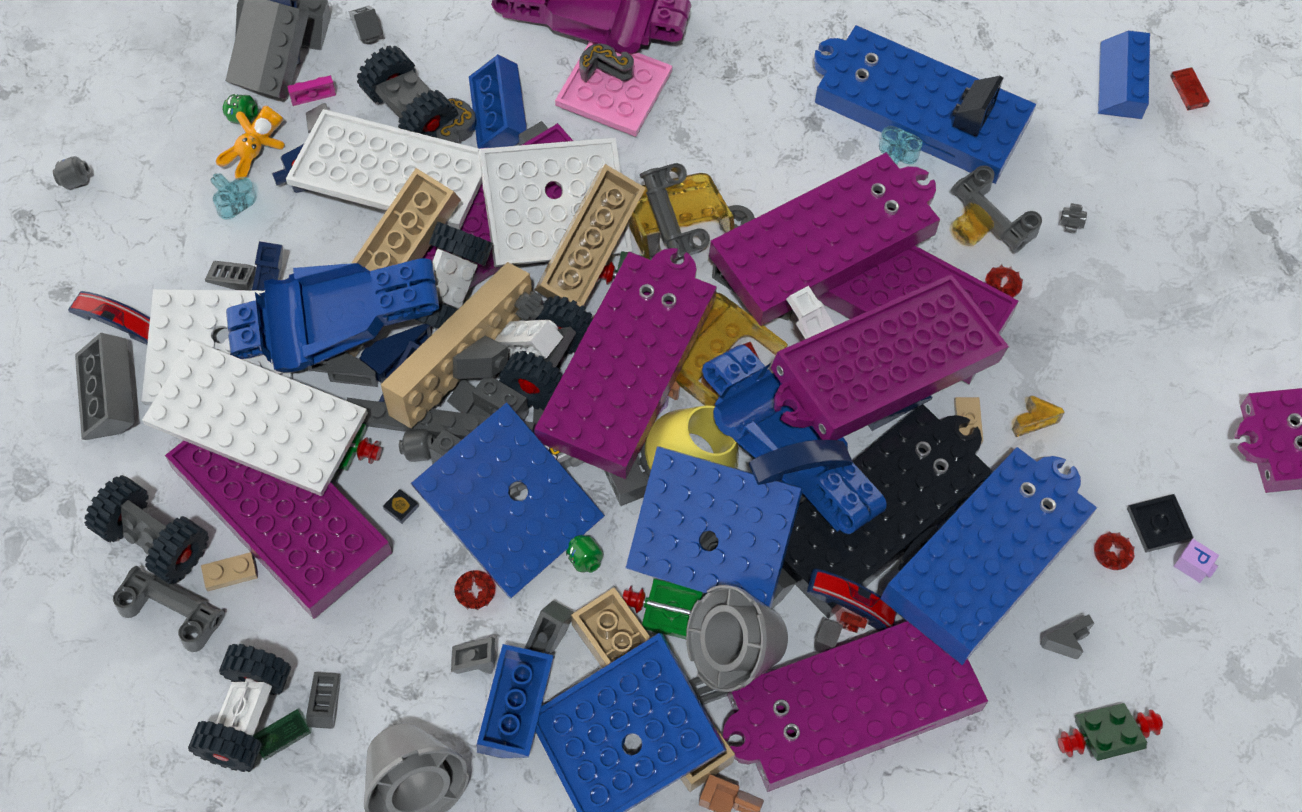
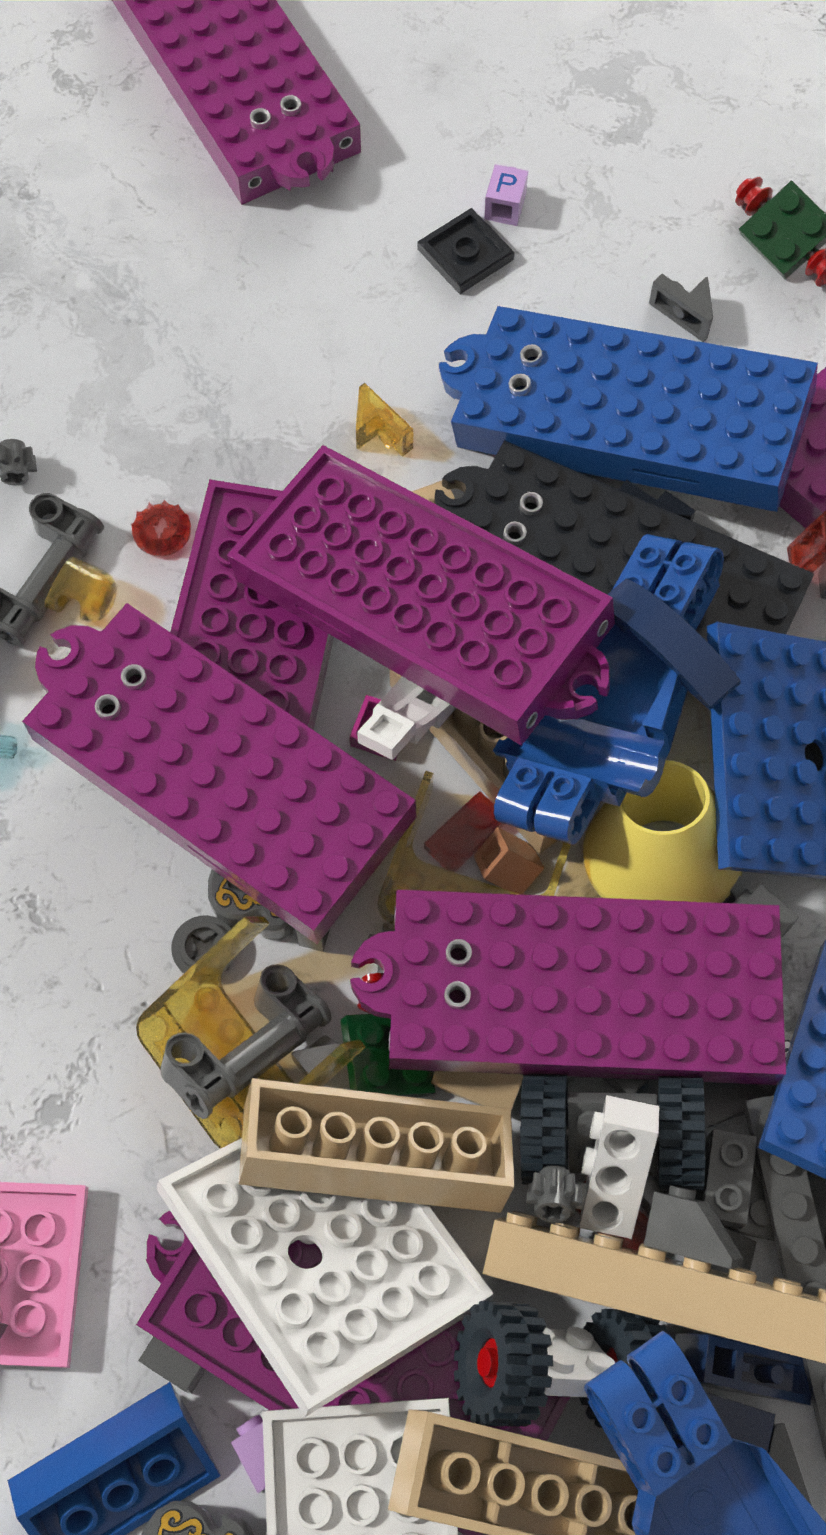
camera: 110 degrees left, 5 degrees up
(853, 597) = (794, 553): slope -> none
(1110, 559) = (530, 300): clear red gear -> none

